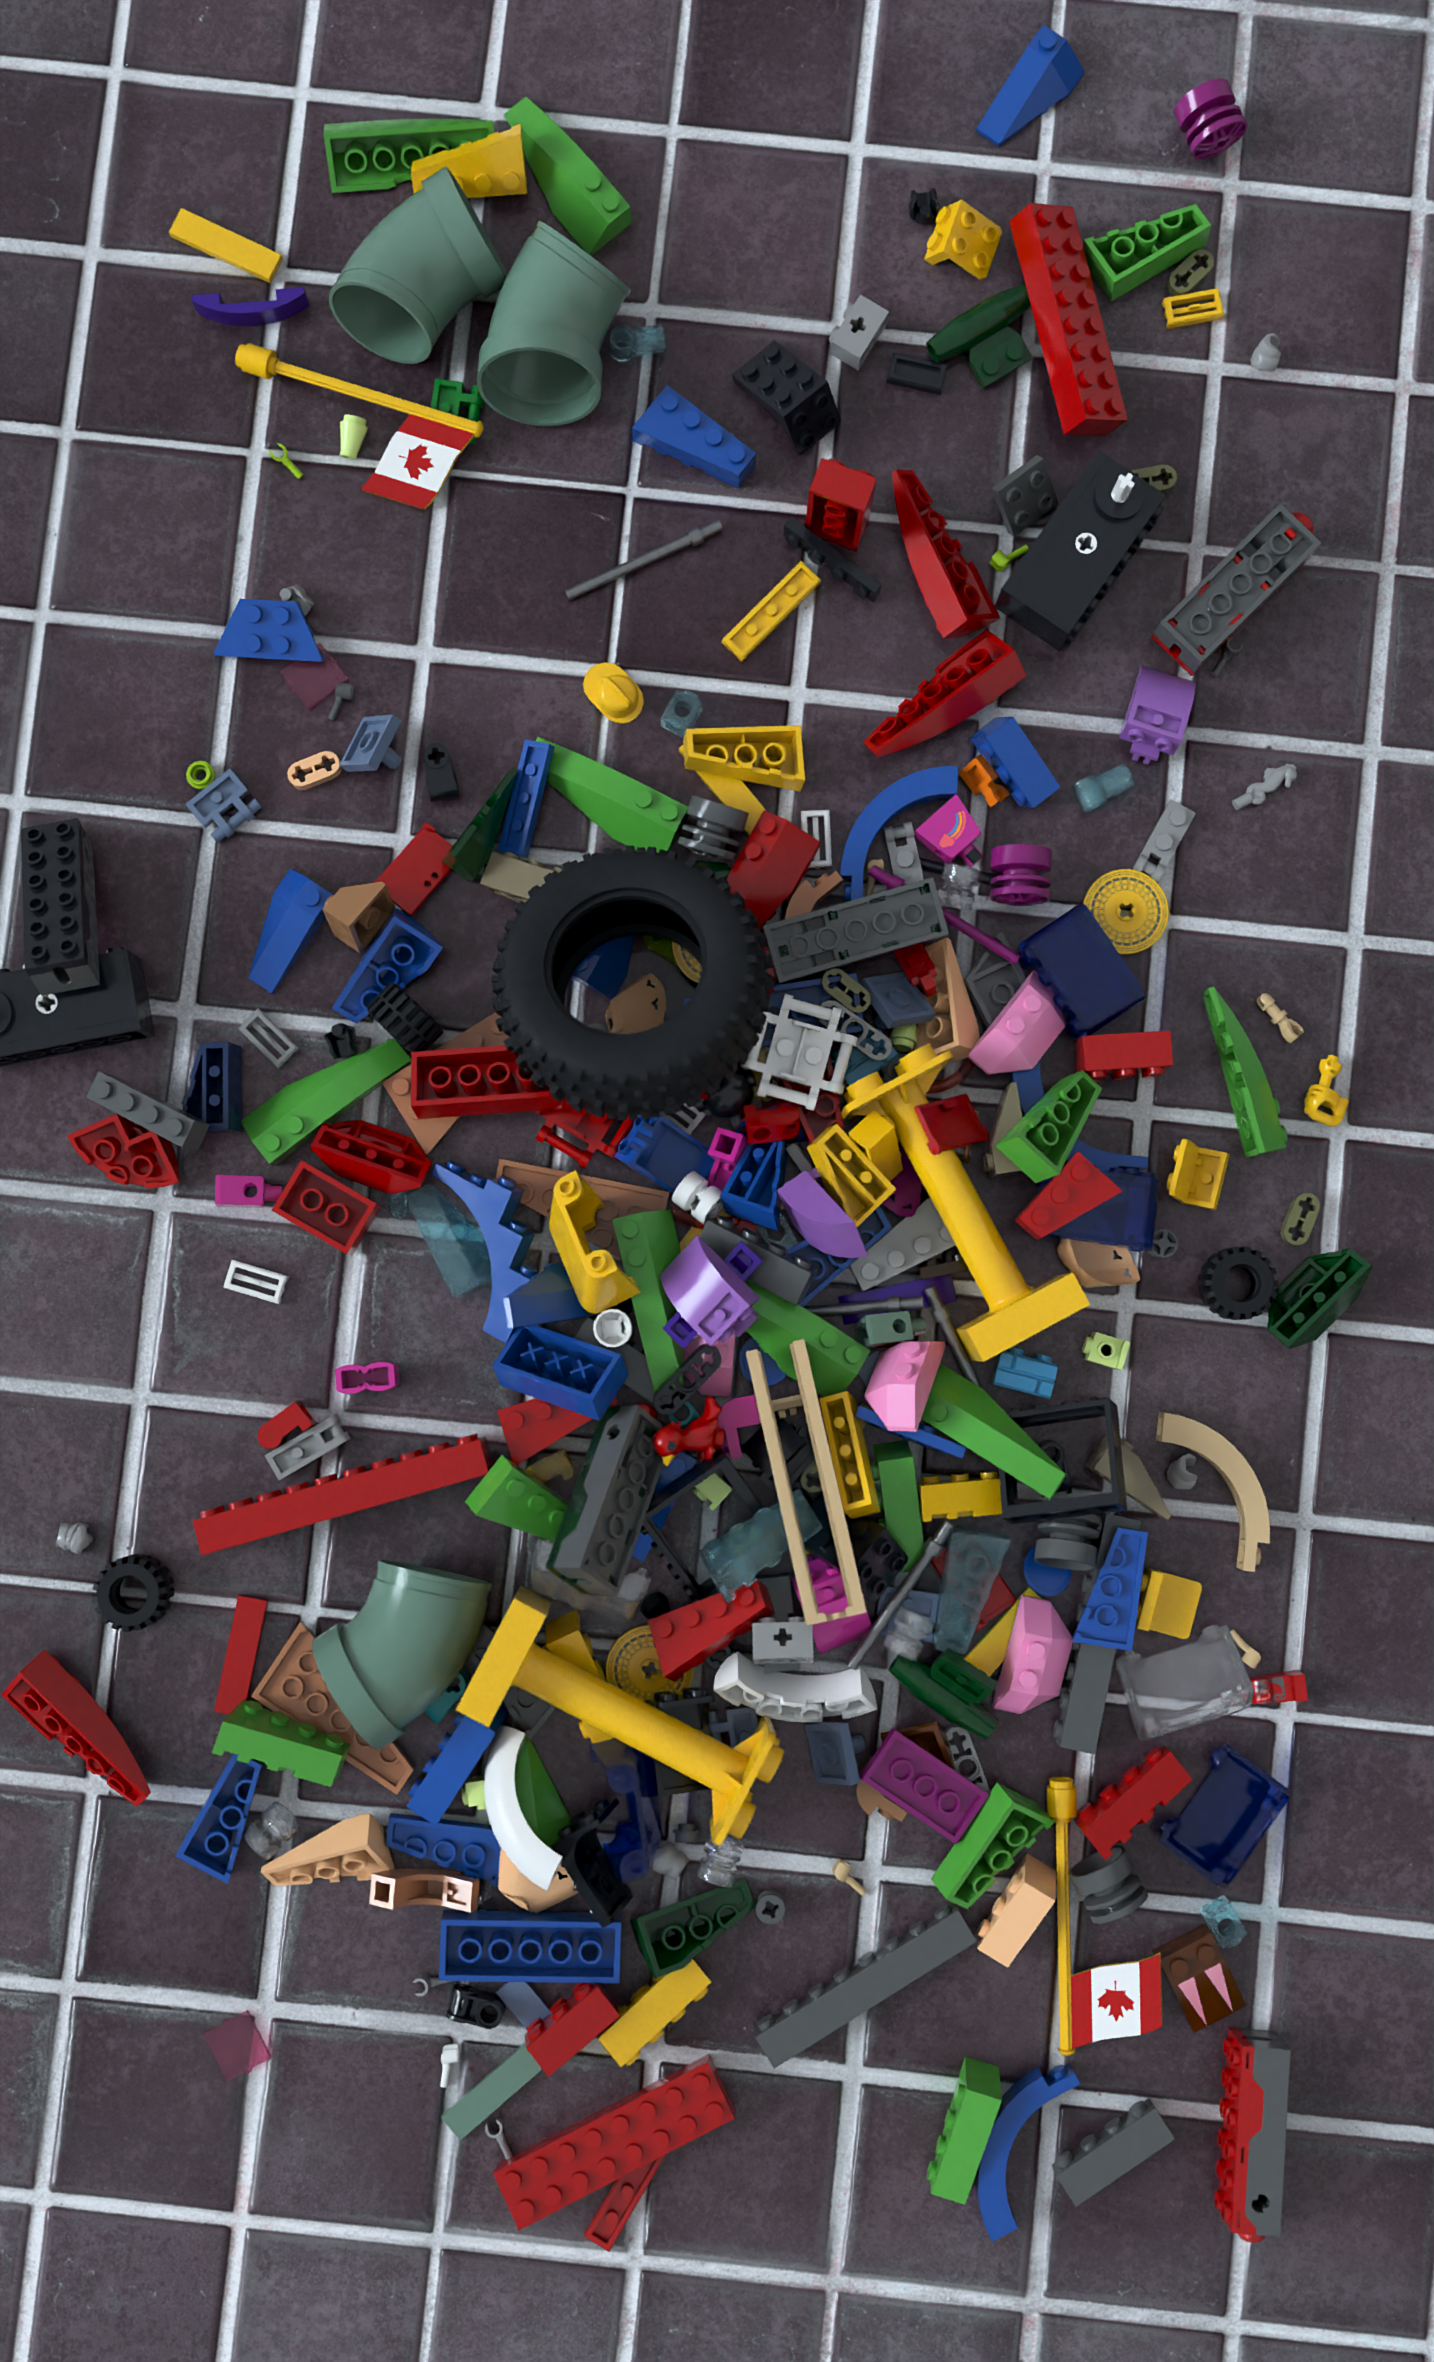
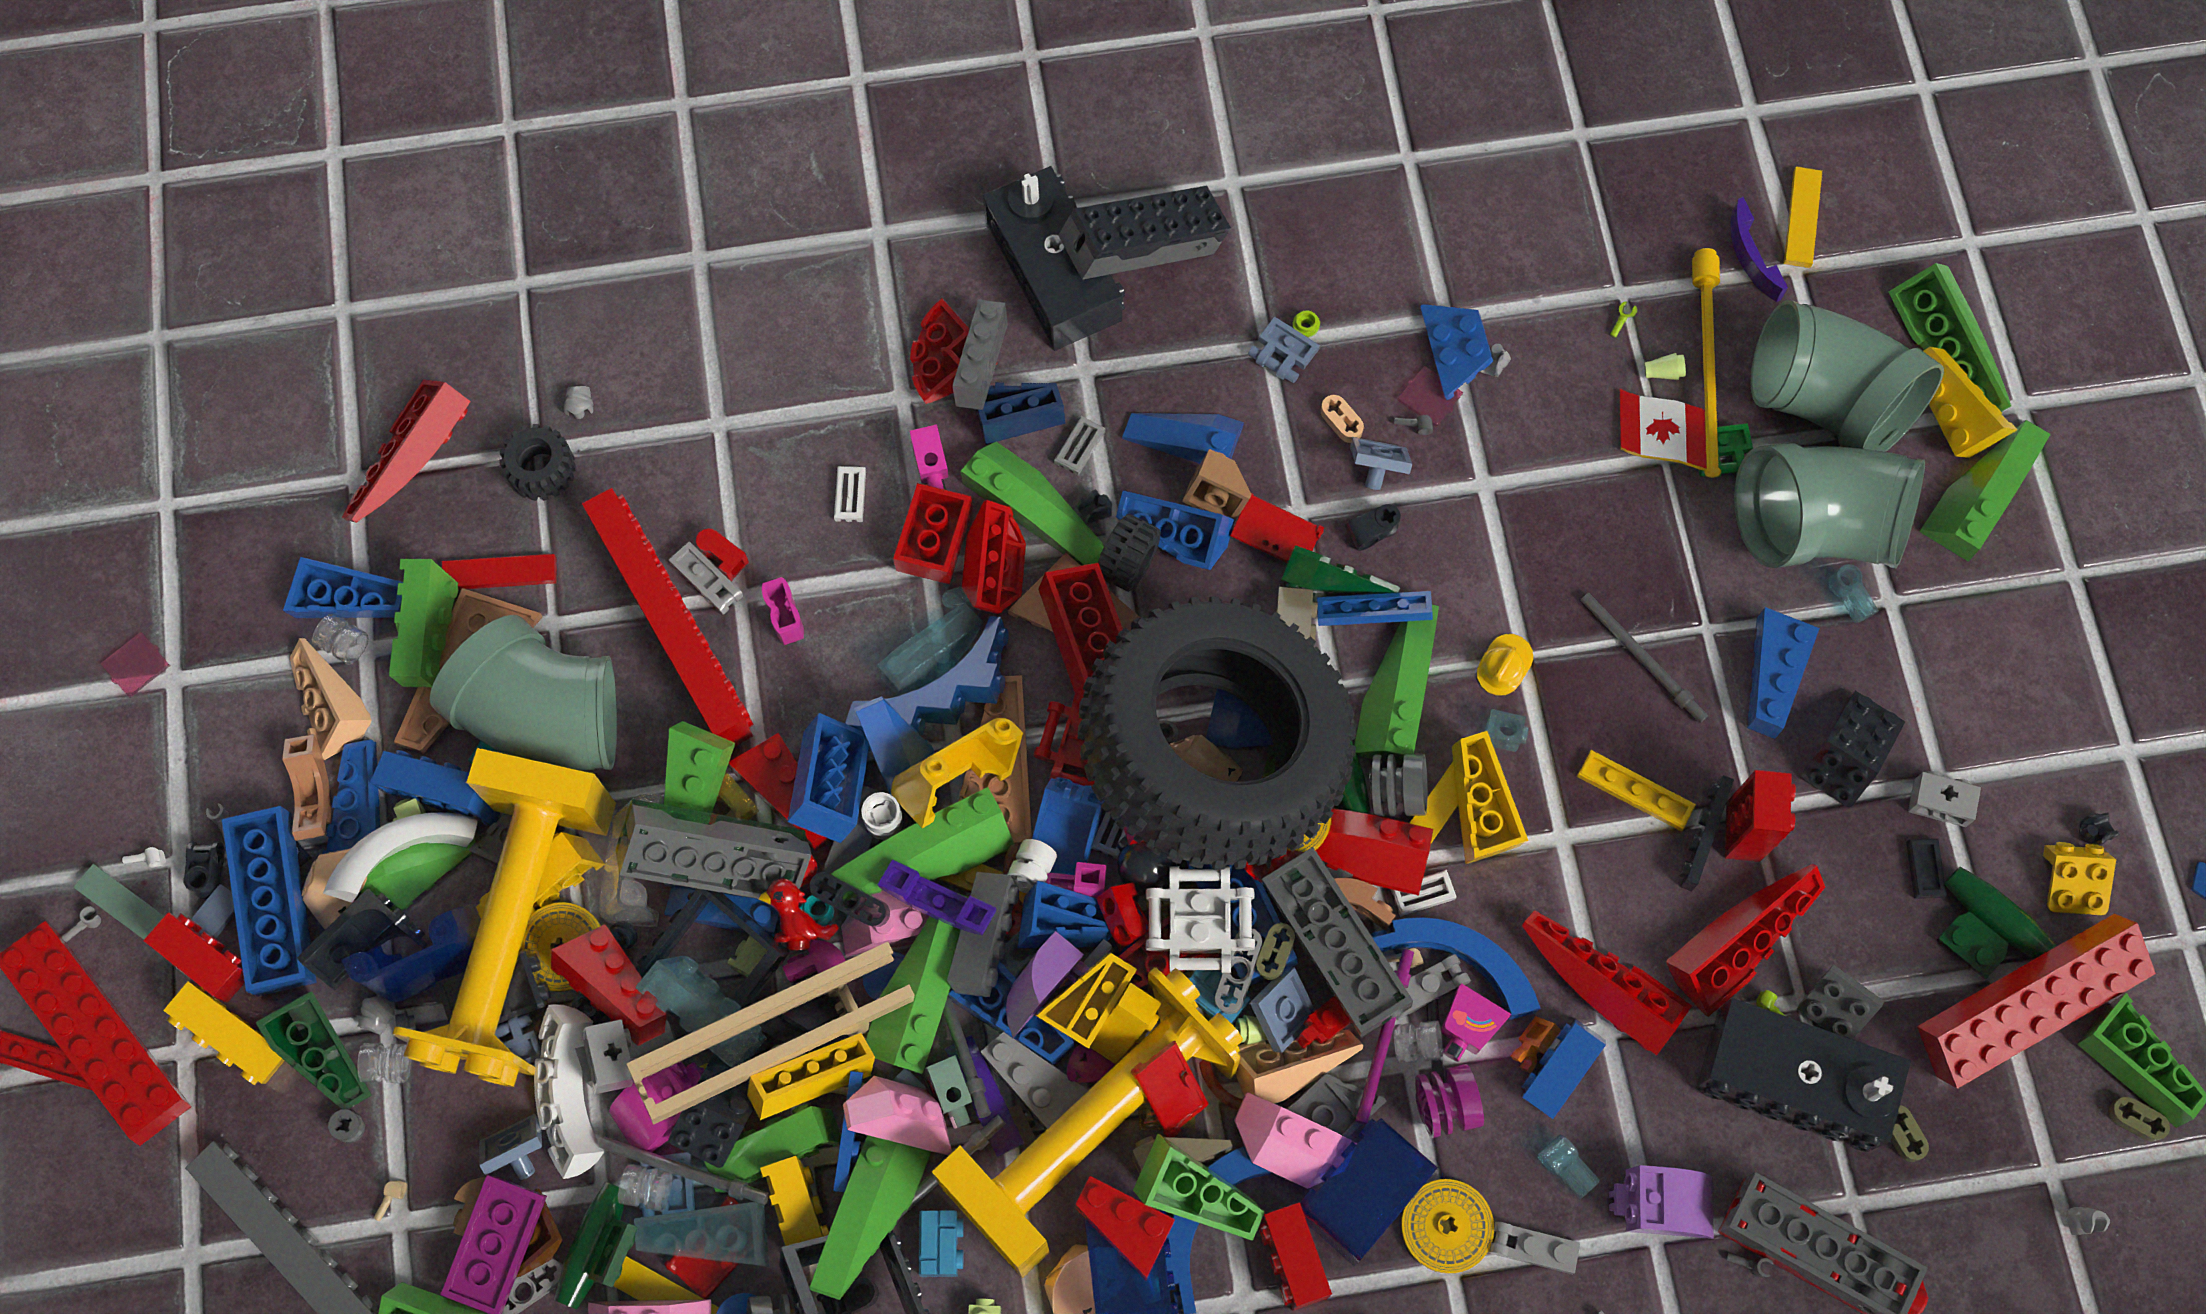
camera: 75 degrees right, 15 degrees down
(709, 1293) = (934, 893): medium lavender piece -> none
(1170, 313) = (2103, 1131): yellow tile -> none

